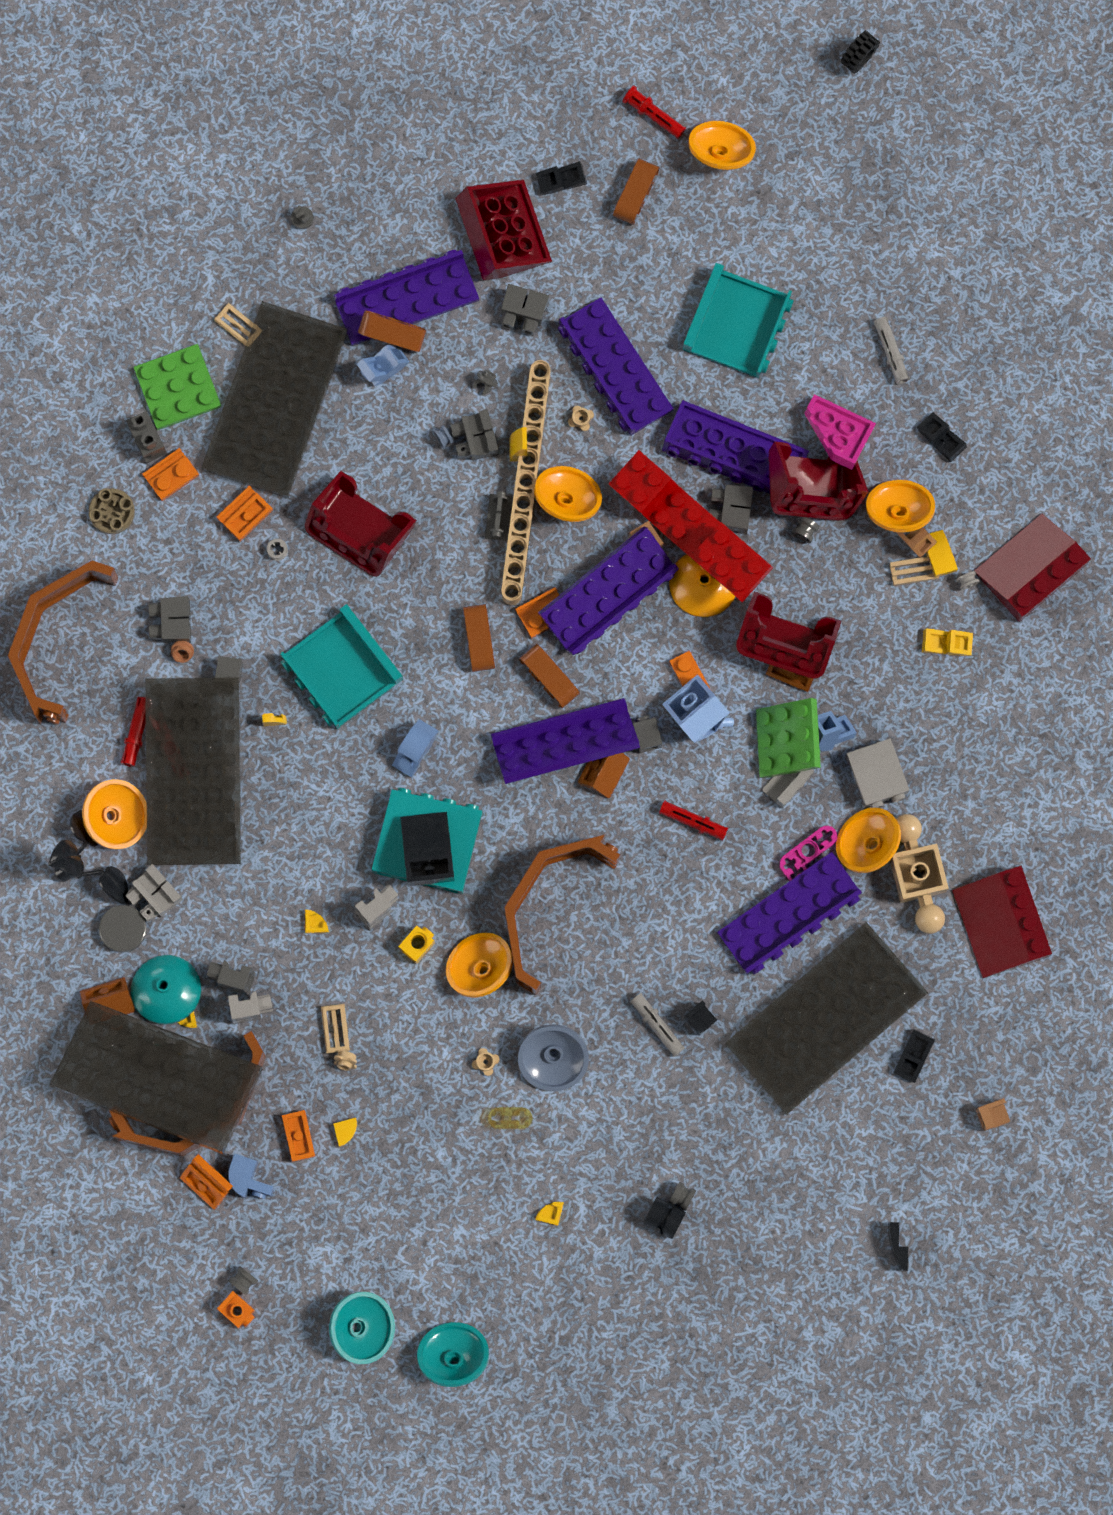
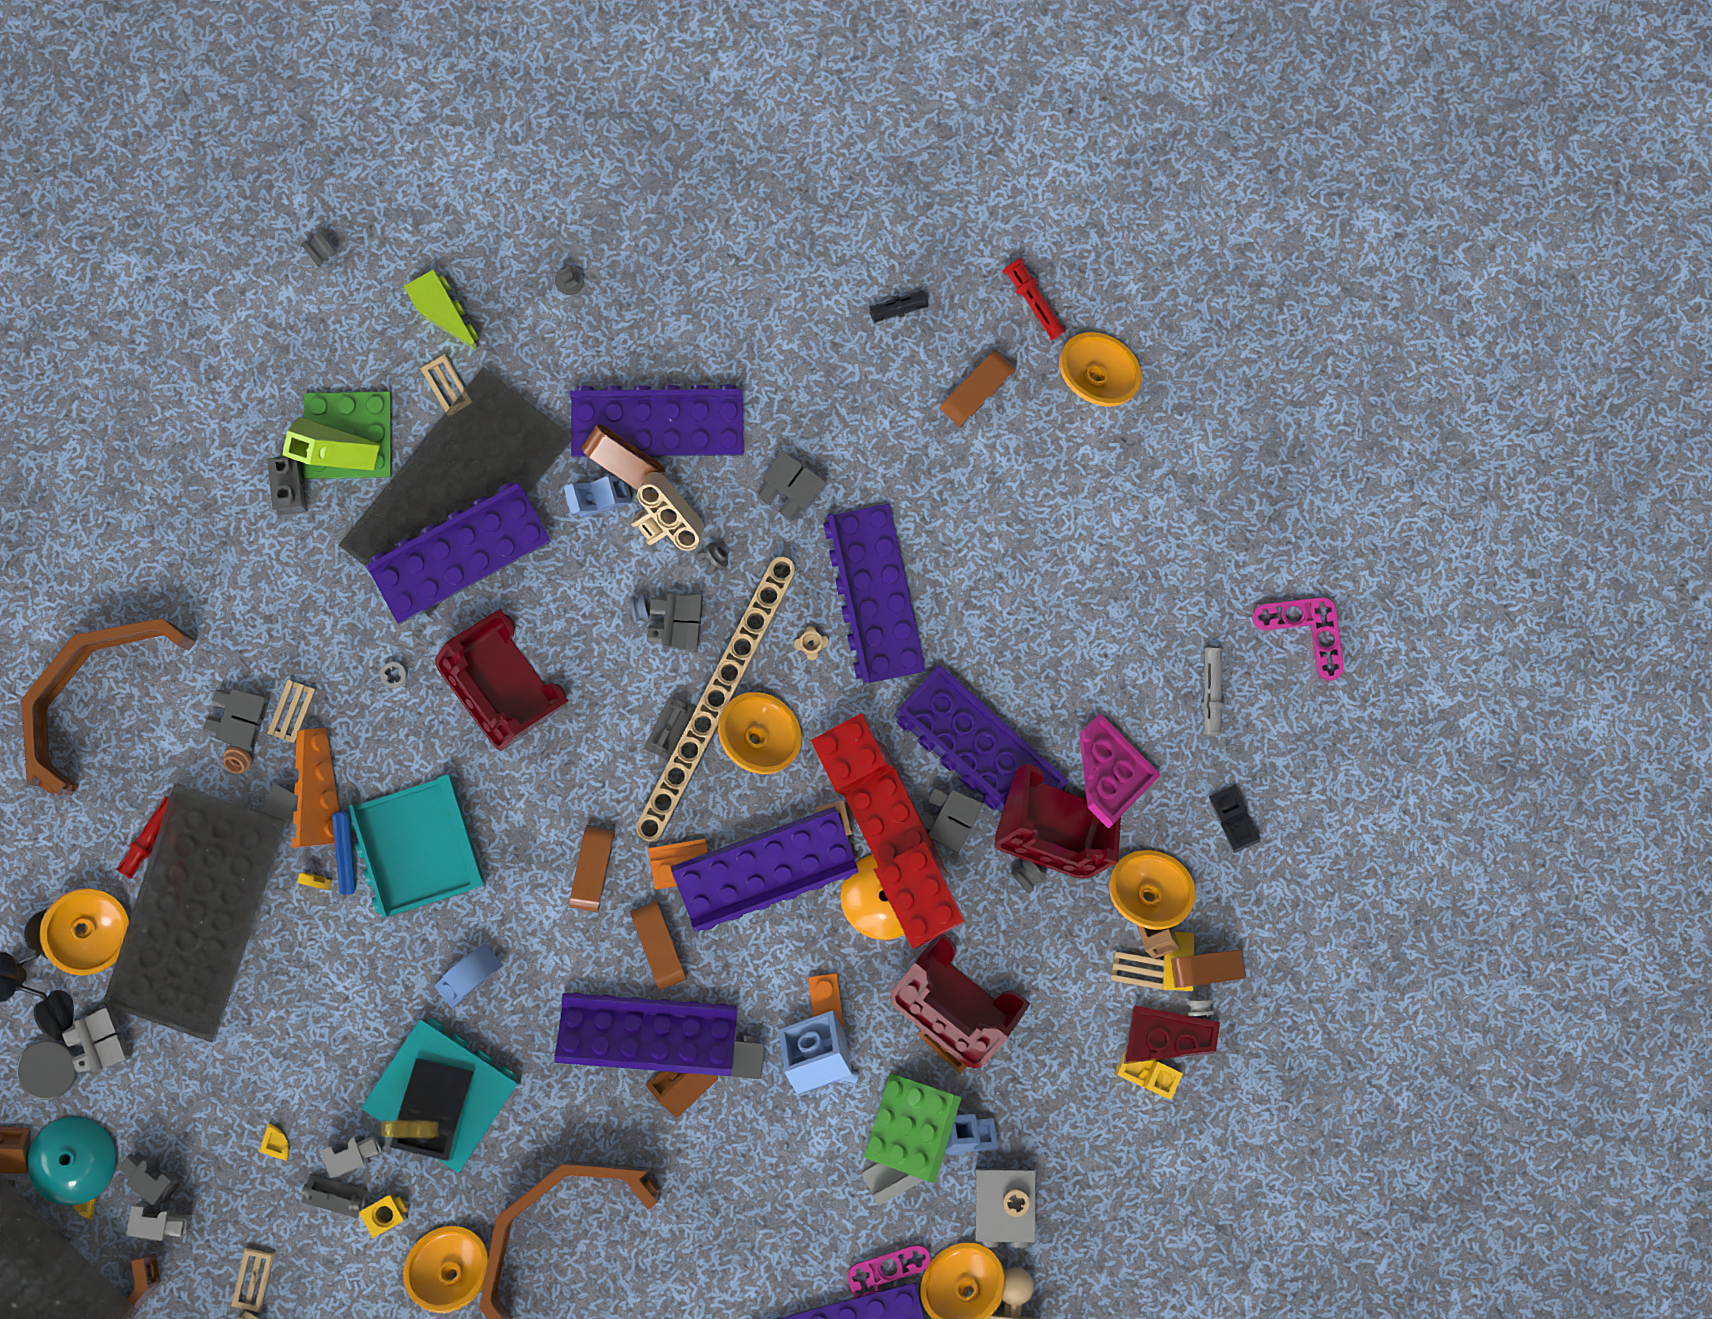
camera: 20 degrees right, 5 degrees up
(105, 257) = (318, 248): none -> dark grey wheel
(111, 511) = (216, 559): dark tan tile -> none
(170, 395) = (329, 447): none -> lime slope
(170, 474) = (301, 539): orange plate -> none
(209, 269) = (435, 305): none -> lime slope
(210, 583) = (281, 706): none -> tan tile
(244, 513) = (367, 620): orange plate -> none
(255, 658) = (314, 790): none -> orange wing
(289, 689) = (344, 852): none -> blue axle
(293, 440) = (458, 552): none -> dark purple bracket
(373, 945) = (333, 1195): none -> dark grey hinge
(417, 860) = (409, 1128): none -> clear yellow beam
(433, 369) = (656, 522): none -> tan piece
(502, 228) = (802, 378): dark red slope -> none
(518, 444) = (722, 651): yellow slope -> none
(555, 152) = (898, 306): none -> black pin
(560, 179) = (895, 341): black slope -> none
(719, 831) = (766, 1182): red pin -> none
(737, 322) = (1041, 592): teal panel -> none
(860, 51) = (1309, 311): black tyre -> none
(884, 757) = (1019, 1194): none -> tan bush
(944, 273) = (1308, 618): none -> dark pink beam
(951, 608) = (1168, 1035): none -> dark red wing
(962, 547) = (1208, 968): none -> dark orange beam
(1032, 566) = (1284, 1017): slope -> none

